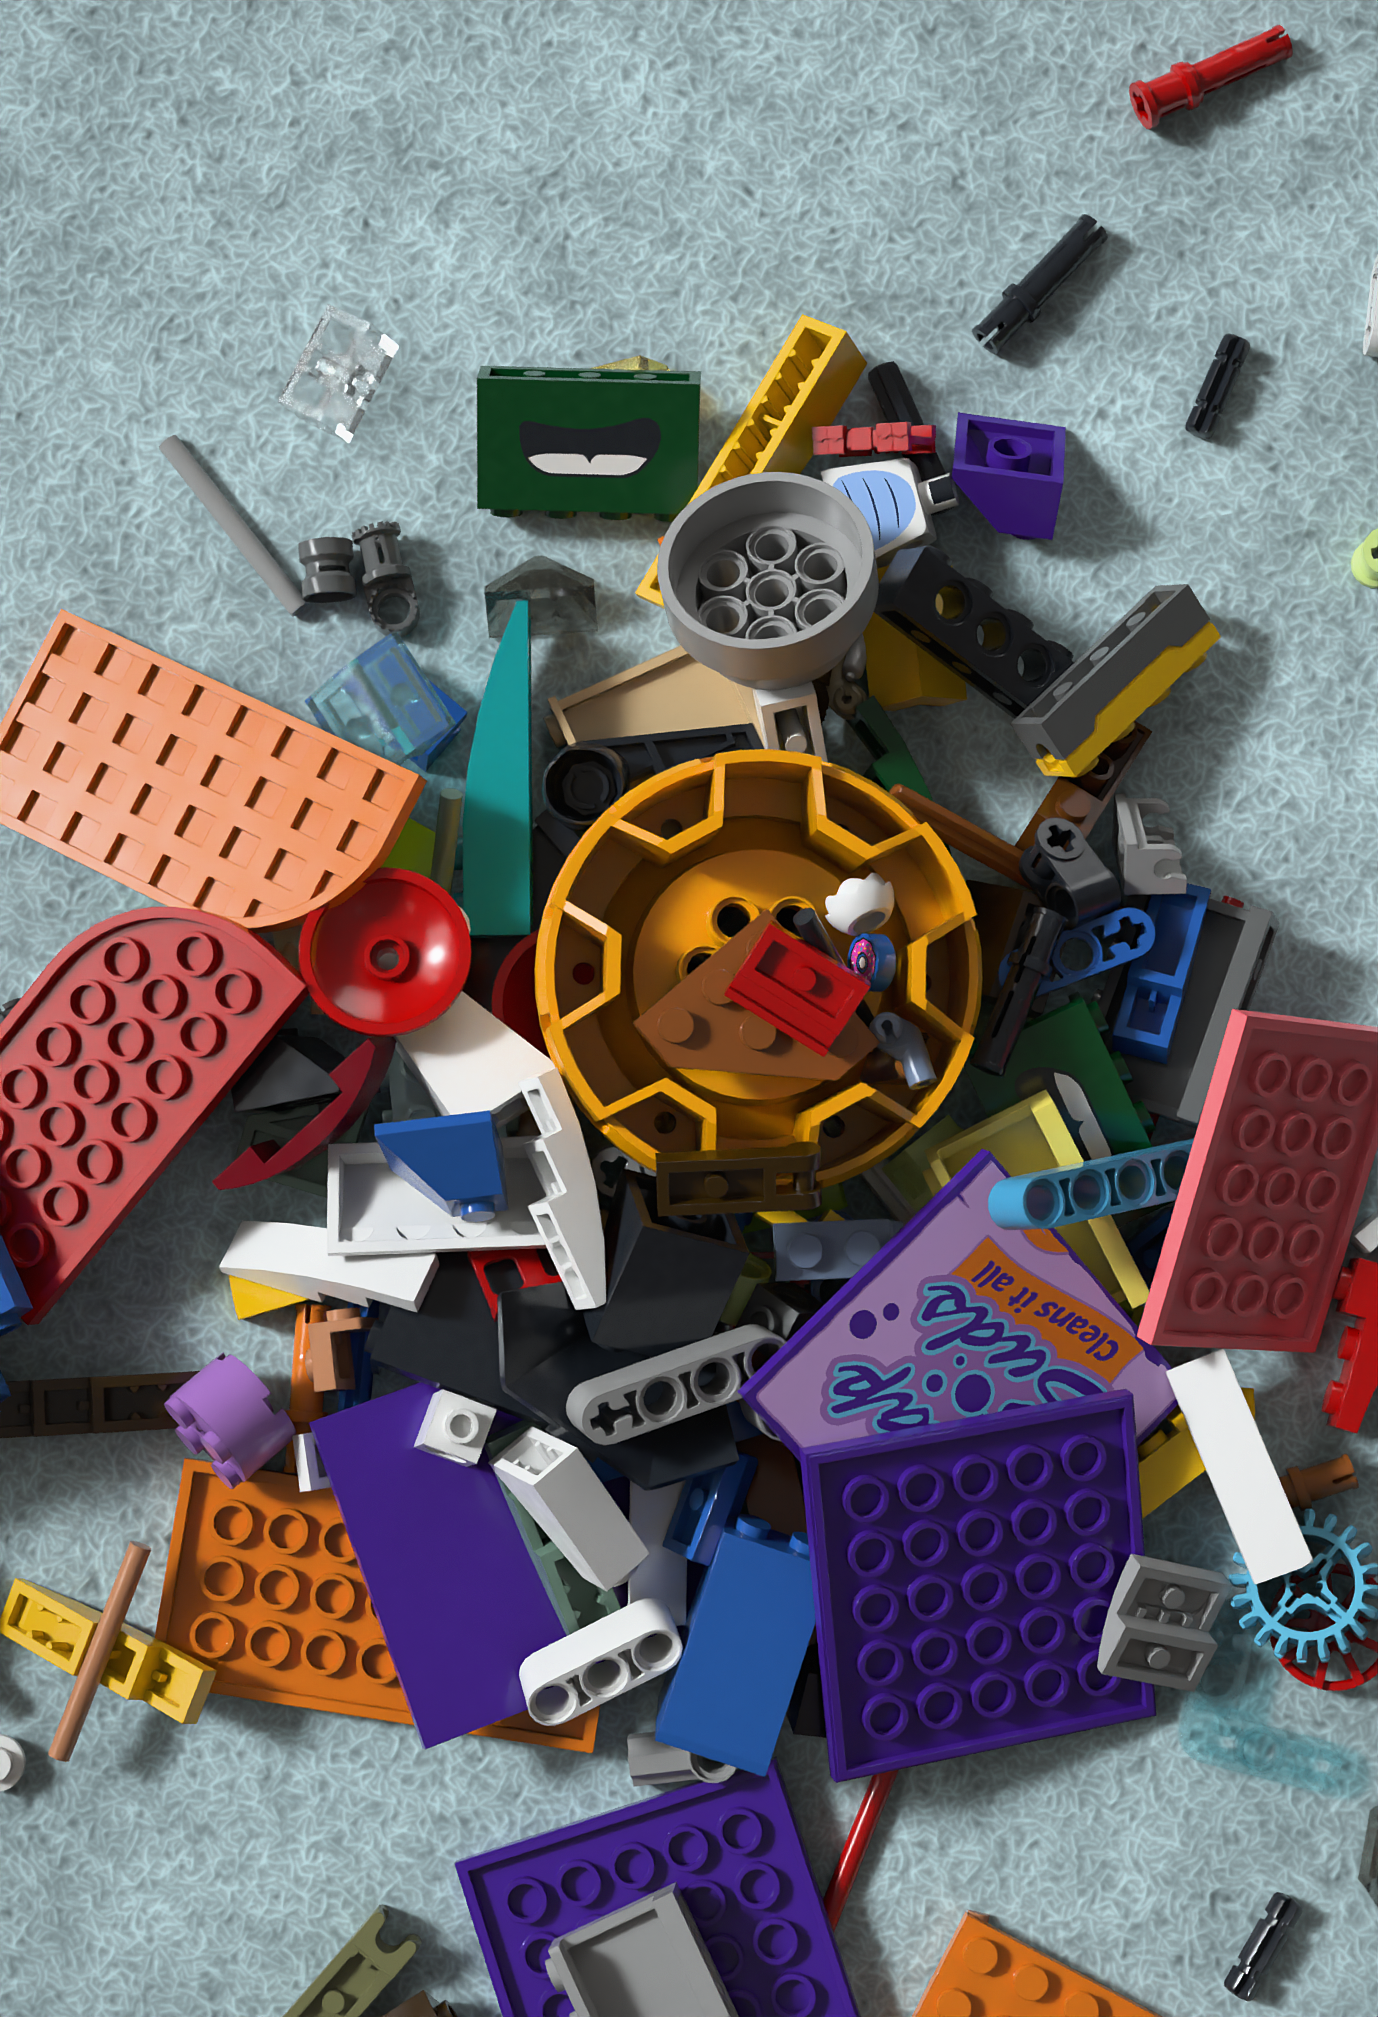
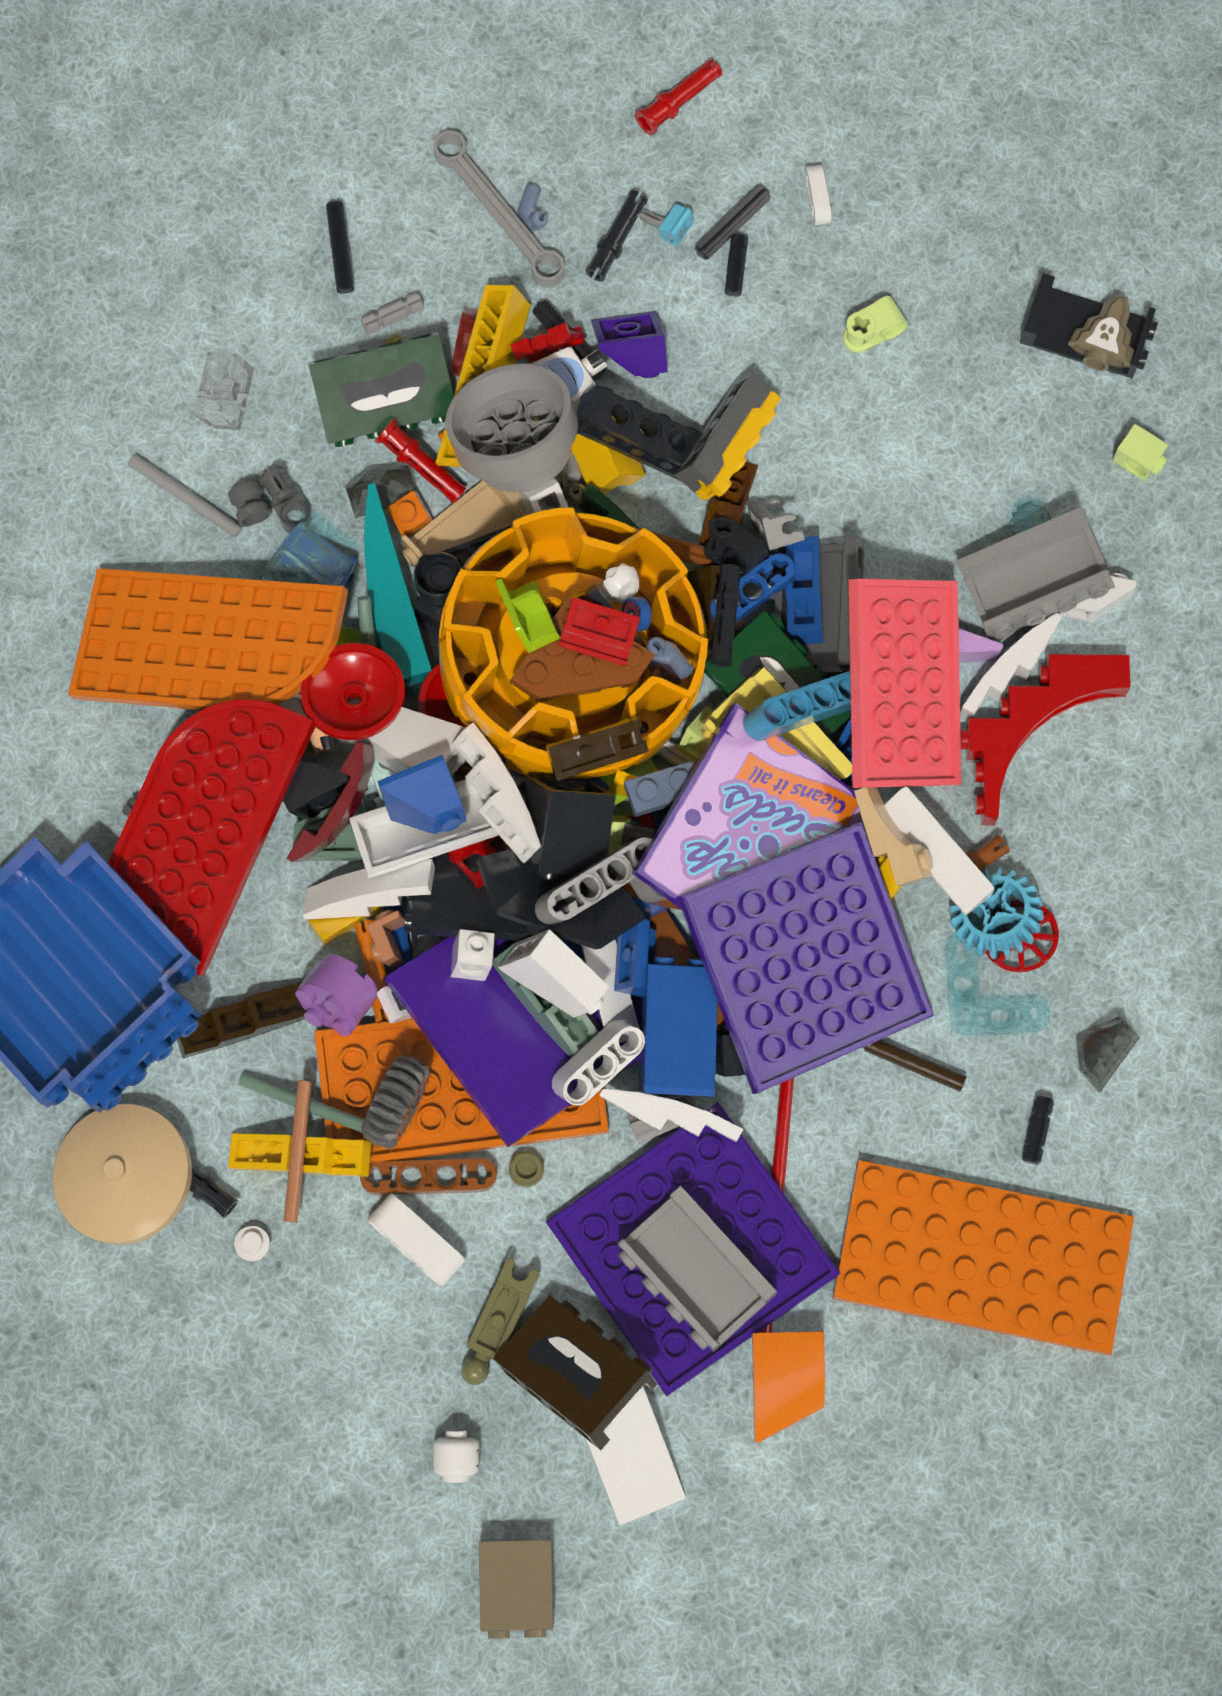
camera: 25 degrees left, 10 degrees down
(150, 1582) = (289, 1097): none -> sand green bar
(246, 1835) = (416, 1240): none -> white beam
(269, 1626) = (395, 1101): none -> dark grey gear
(294, 1746) = (428, 1171): none -> dark orange beam
(450, 1769) = (526, 1169): none -> olive tile
(575, 657) = (409, 514): none -> orange plate
(593, 179) = (339, 247): none -> black axle
(601, 558) = (408, 451): none -> red pin
(644, 314) = (392, 313): none -> light grey axle
(692, 923) = (529, 615): none -> lime panel
(716, 1786) = (657, 1110): none -> white slope
(744, 388) = (463, 337): none -> clear red plate
(864, 183) = (498, 208): none -> light grey piece
(911, 201) = (528, 210): none -> sand blue arm
(1110, 1788) = (917, 1064): none -> dark brown piece
(1138, 293) = (673, 226): none -> medium azure piece
(1162, 1623) = (919, 955): light grey slope -> none
(1188, 1469) = (907, 860): none -> tan slope
(1233, 312) = (732, 222): none -> black axle

